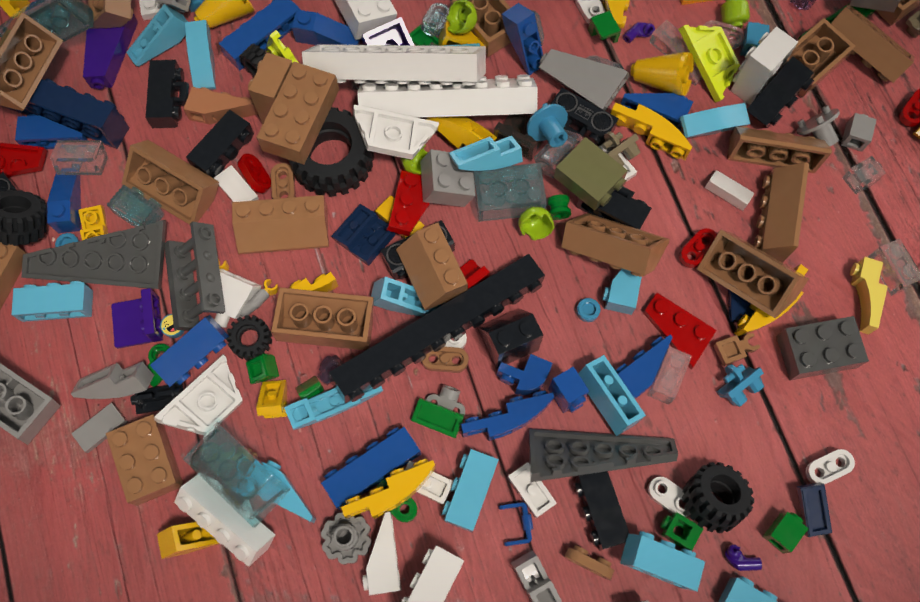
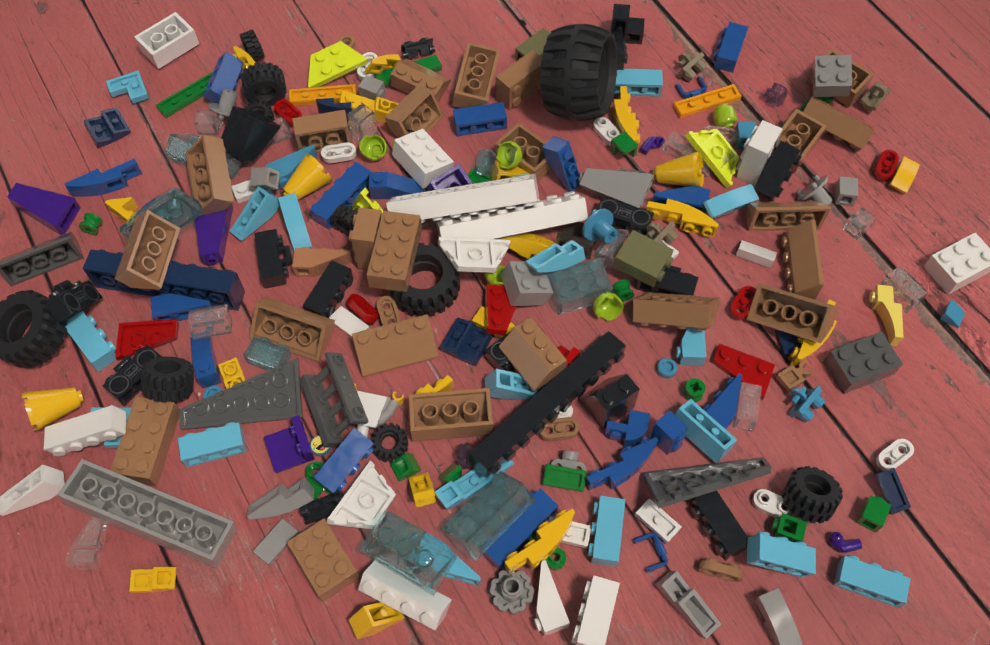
camera: 10 degrees left, 10 degrees down
(336, 447) = (488, 515): none -> clear light blue brick
(609, 347) = (693, 394): none -> green wheel

